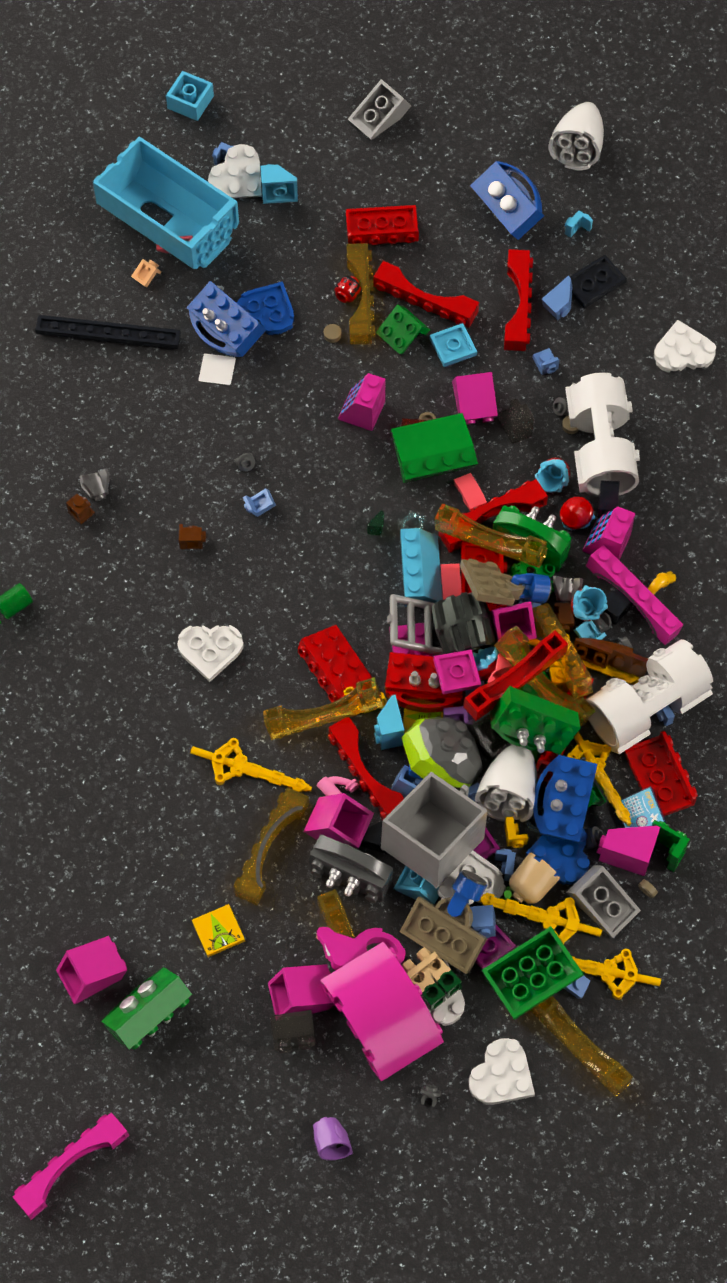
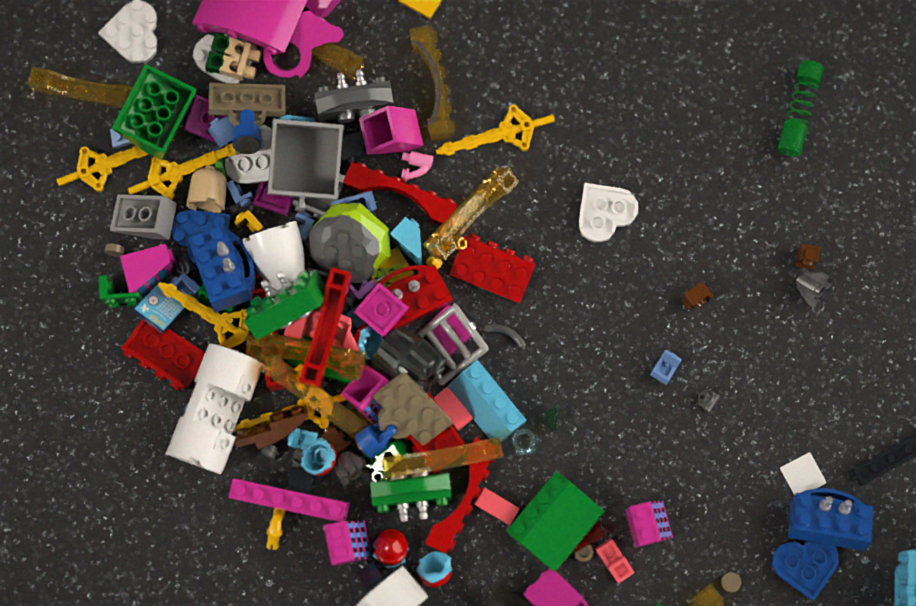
camera: 140 degrees right, 15 degrees up
(363, 614) = (506, 330): none -> dark grey piece
(408, 400) = (614, 560): none -> coral slope
(603, 816) = (186, 285): none -> medium blue bracket

